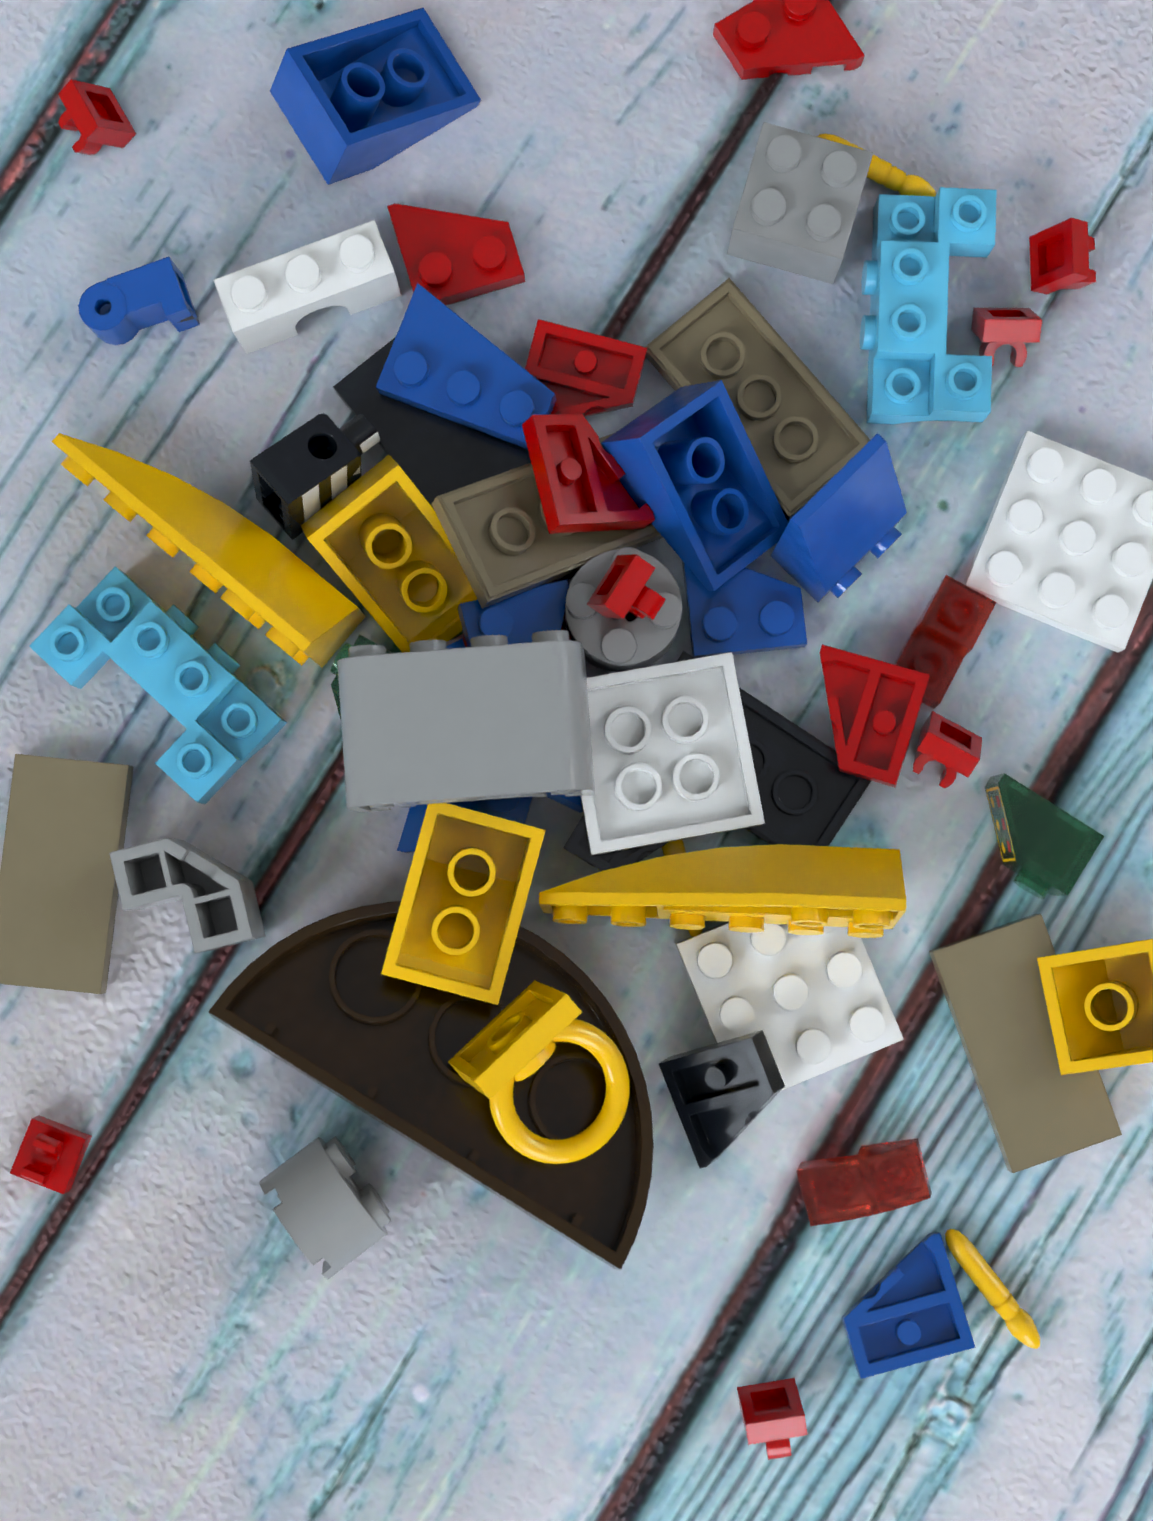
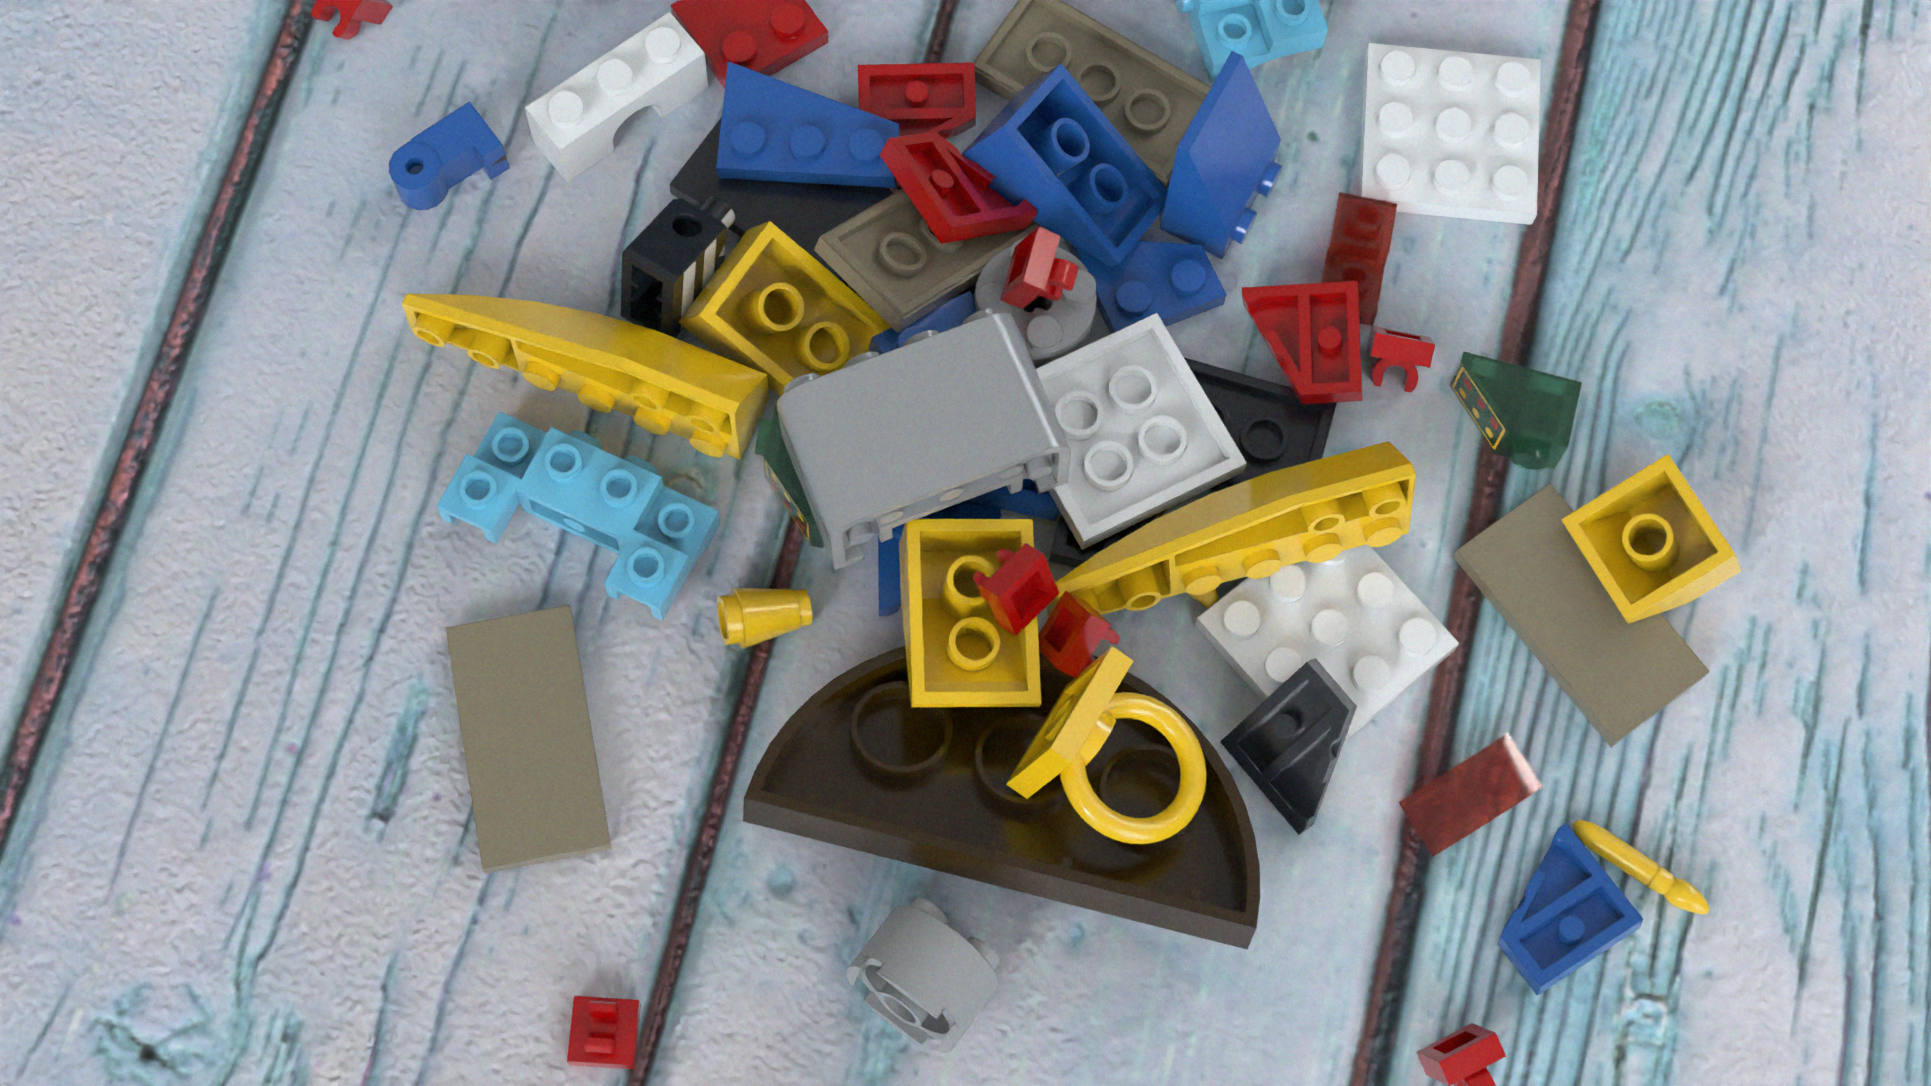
camera: 25 degrees left, 15 degrees down
(215, 898) = (657, 688): light grey brick -> none
(292, 824) = (761, 614): none -> yellow cone
(506, 901) = (1018, 587): none -> red tile
(550, 946) = (1073, 634): none -> red tile

